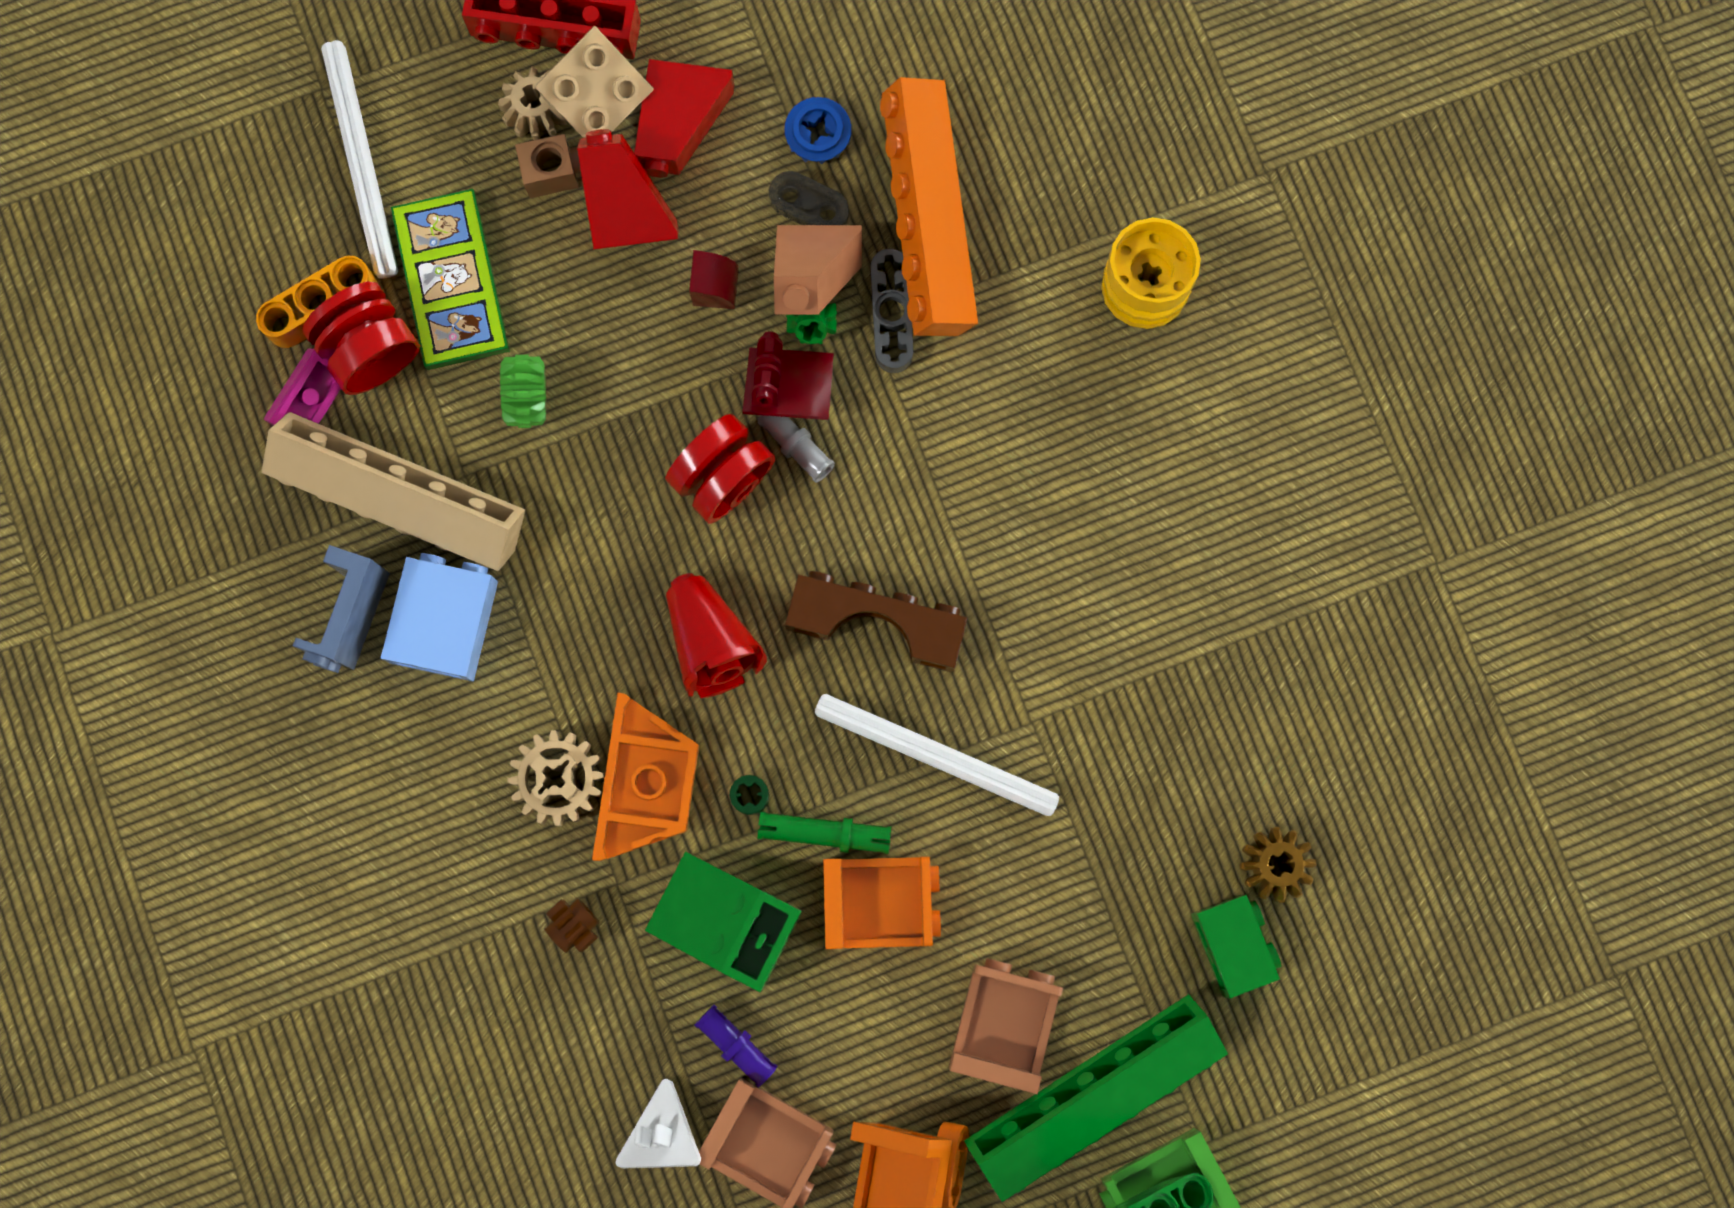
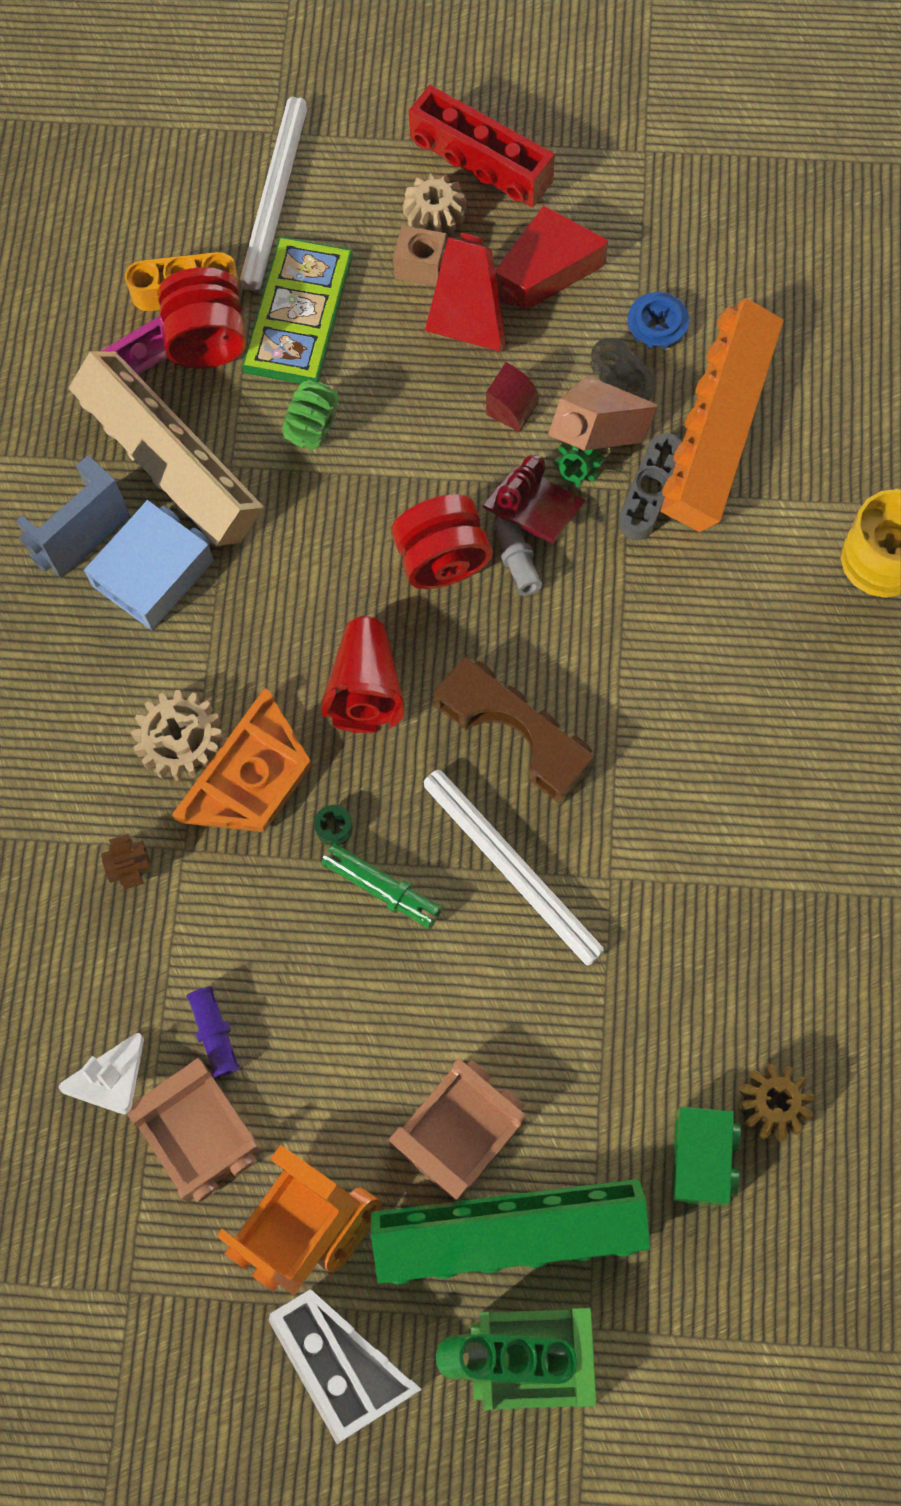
camera: 30 degrees right, 10 degrees down
(593, 85) = (487, 201): tan hinge -> none
(723, 921) = (258, 921): green slope -> none
(880, 902) = (398, 968): orange panel -> none

